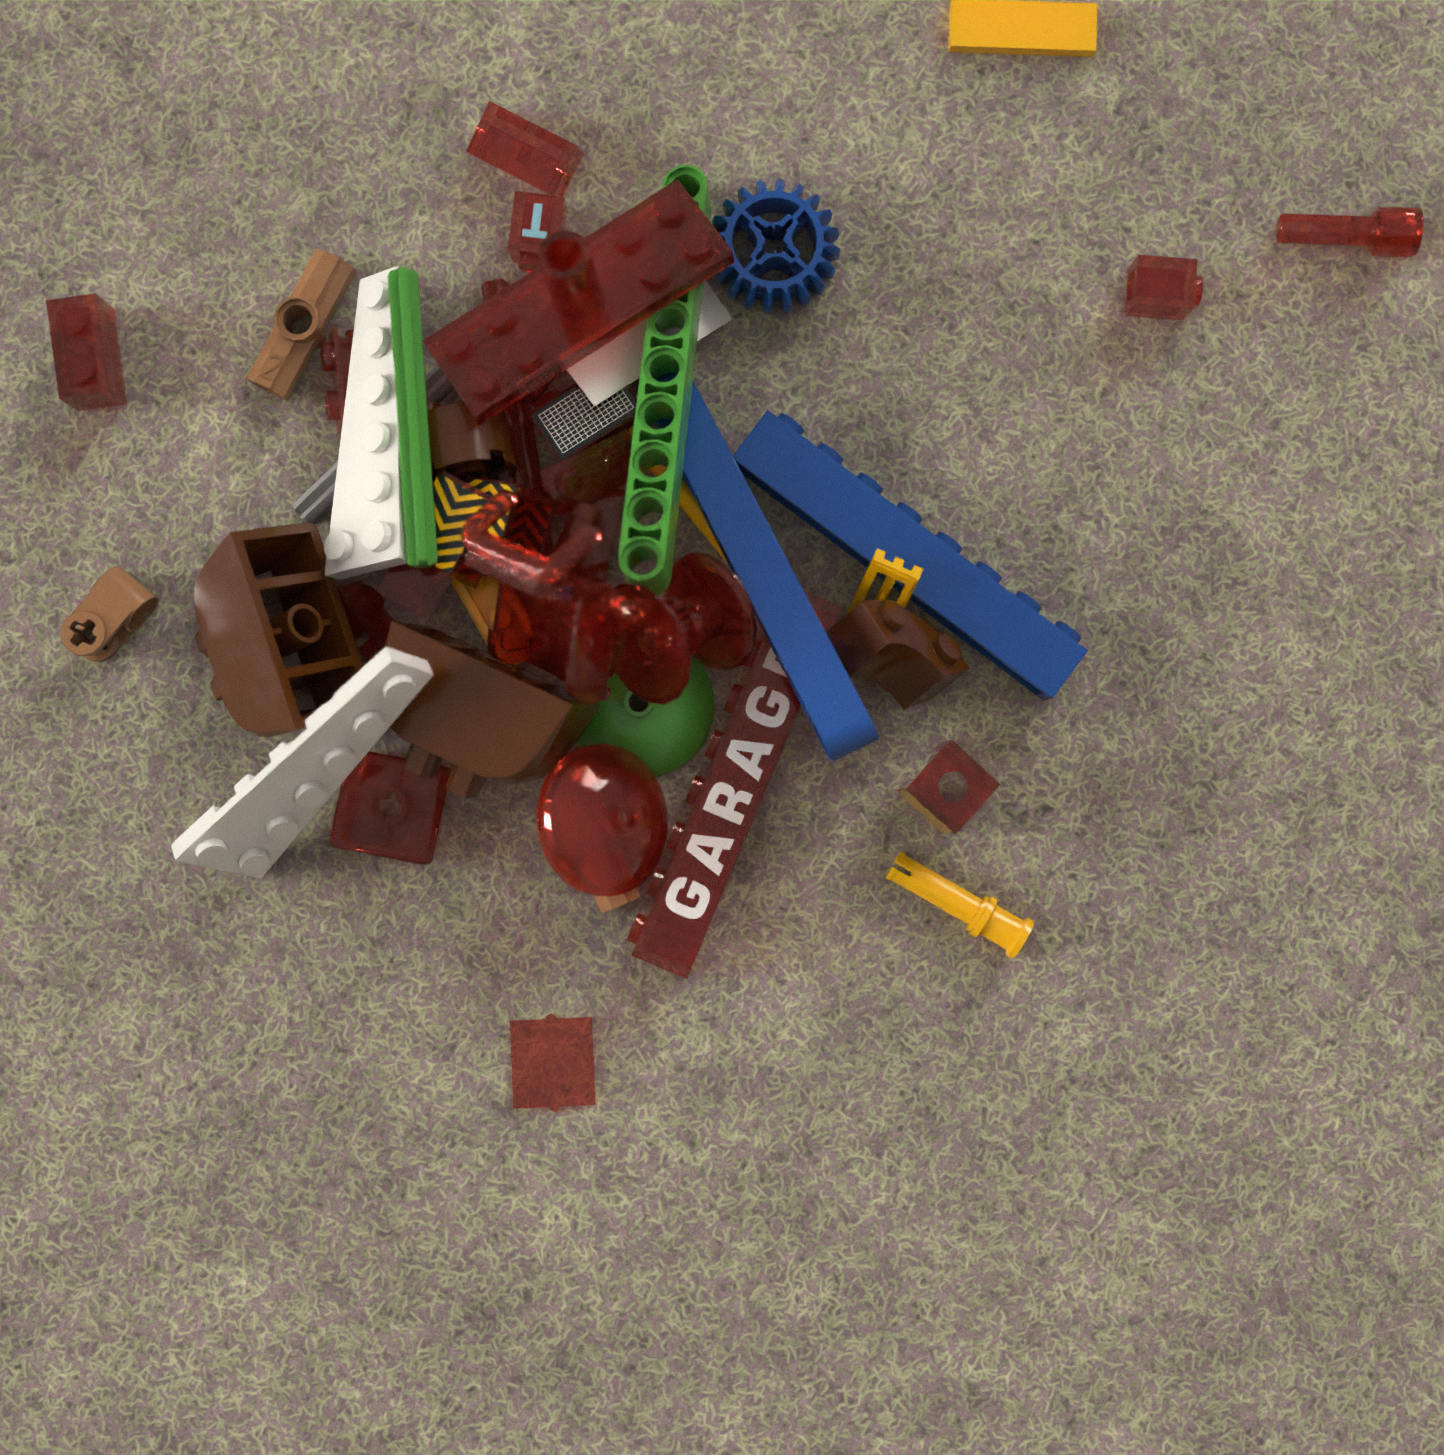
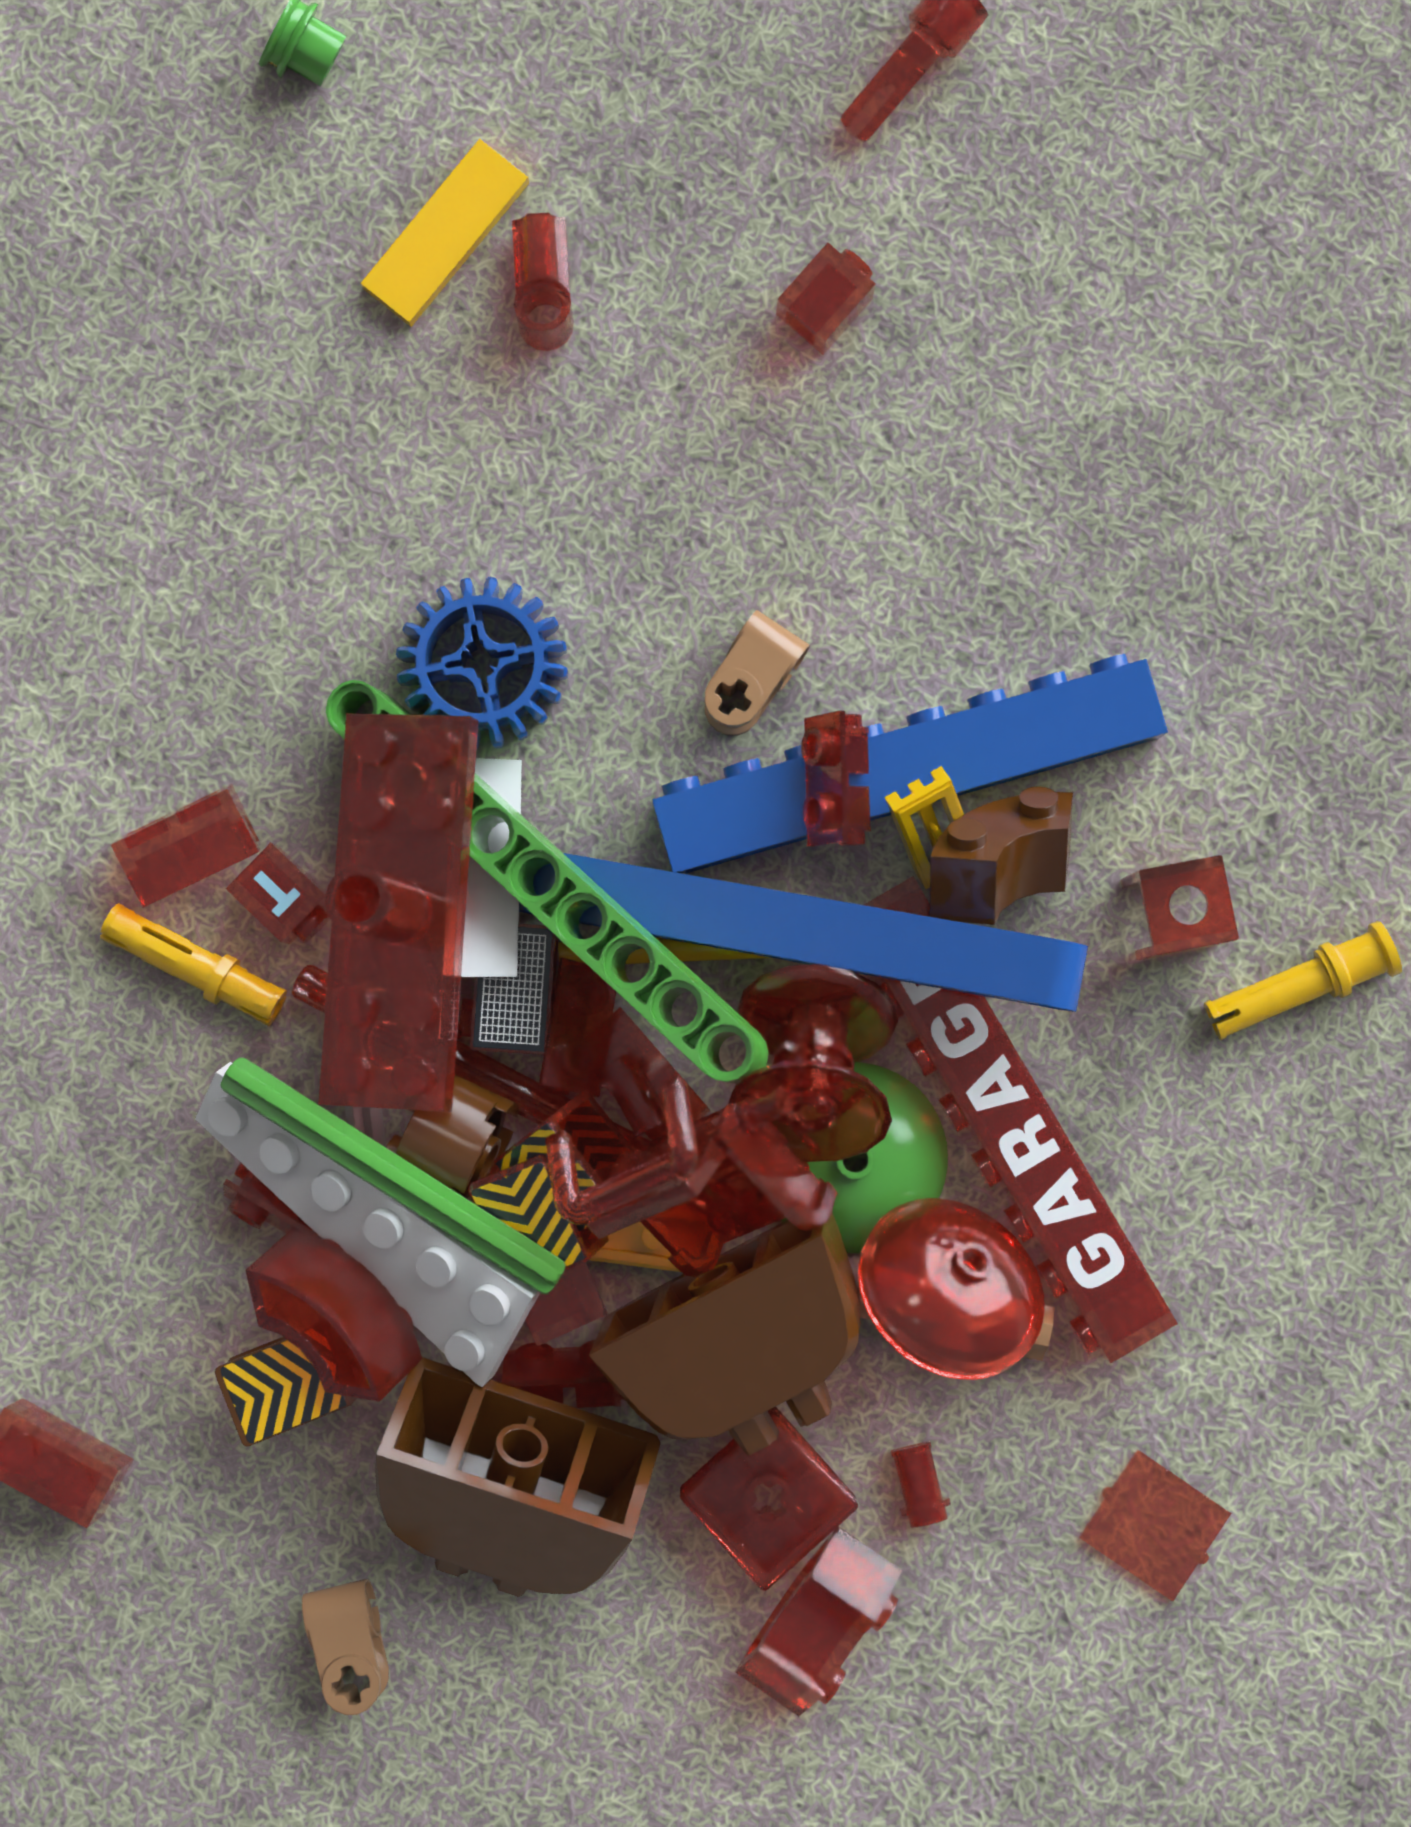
camera: 50 degrees left, 0 degrees up
(241, 456) = (274, 1391): none -> piece
(300, 448) = (334, 1315): none -> clear red brick
(303, 774) = (677, 1563): white wing -> none
(315, 296) = (172, 1175): medium nougat piece -> none
(337, 896) = (819, 1622): none -> clear red brick
(458, 229) = (215, 975): none -> yellow pin
(468, 896) = (920, 1485): none -> clear red pin
(881, 496) = (833, 749): none -> clear red hinge
(899, 415) = (757, 667): none -> medium nougat piece
(1039, 106) = (542, 278): none -> clear red piece

